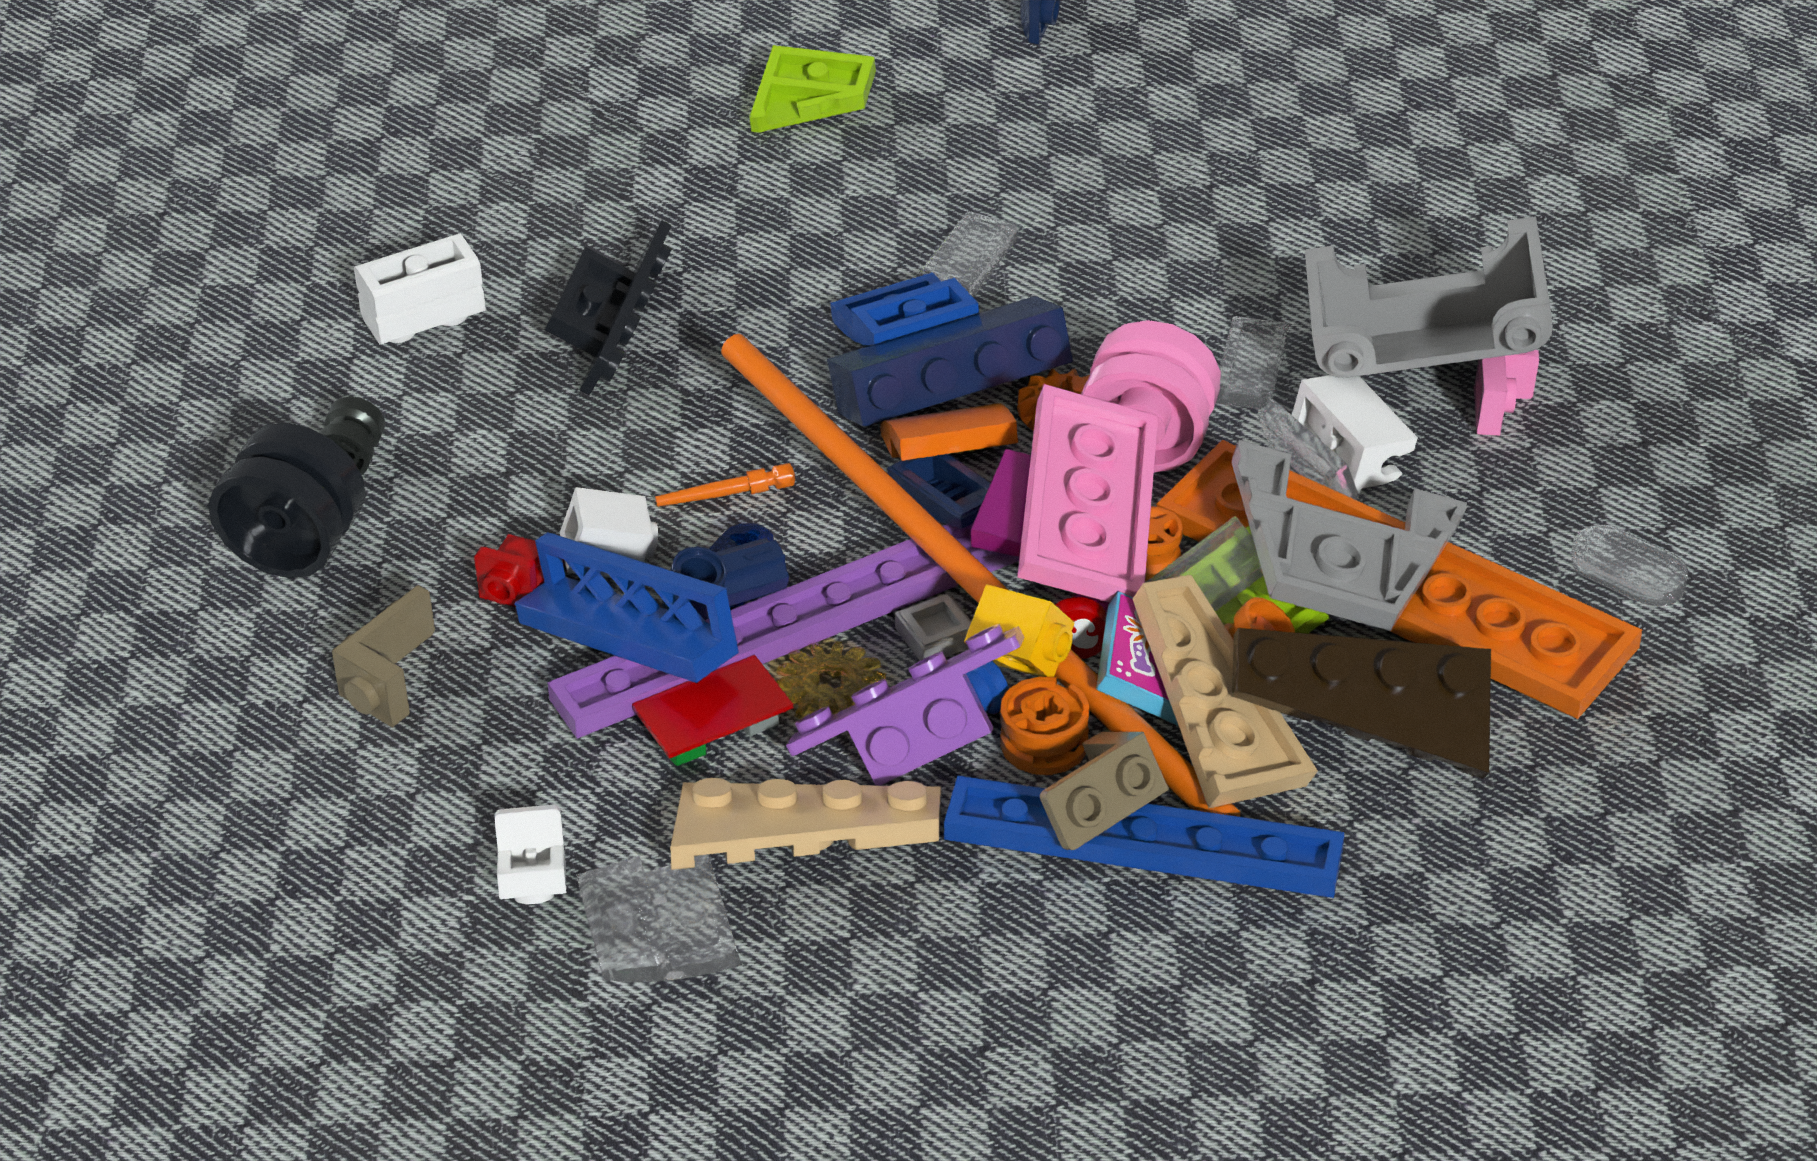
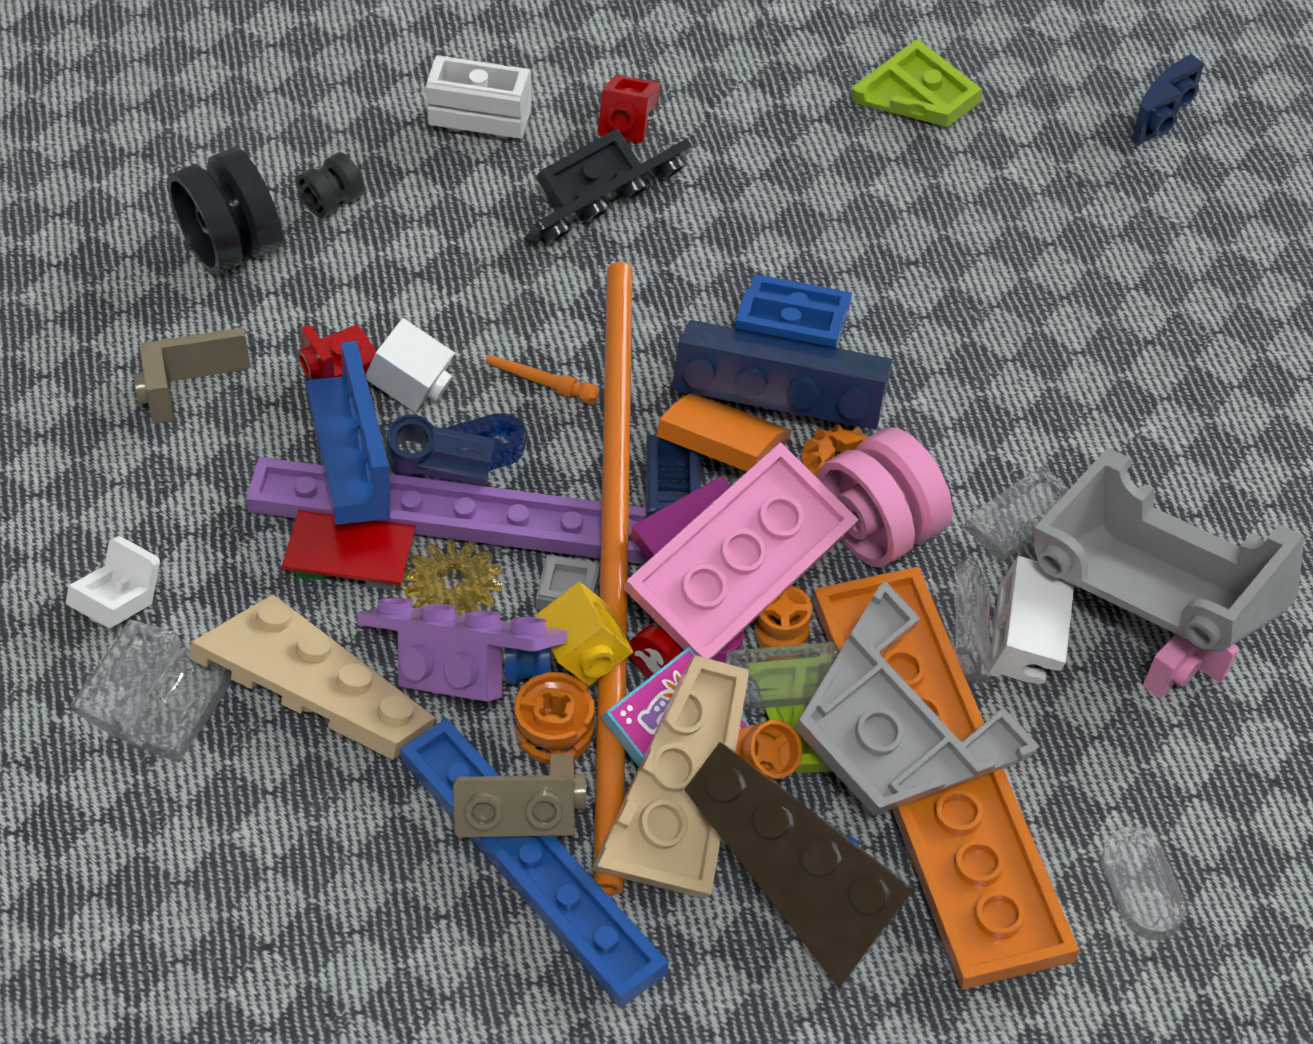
camera: 35 degrees right, 10 degrees up
(562, 232) = (626, 106): none -> red bracket
(972, 250) = (900, 293): clear tile -> none

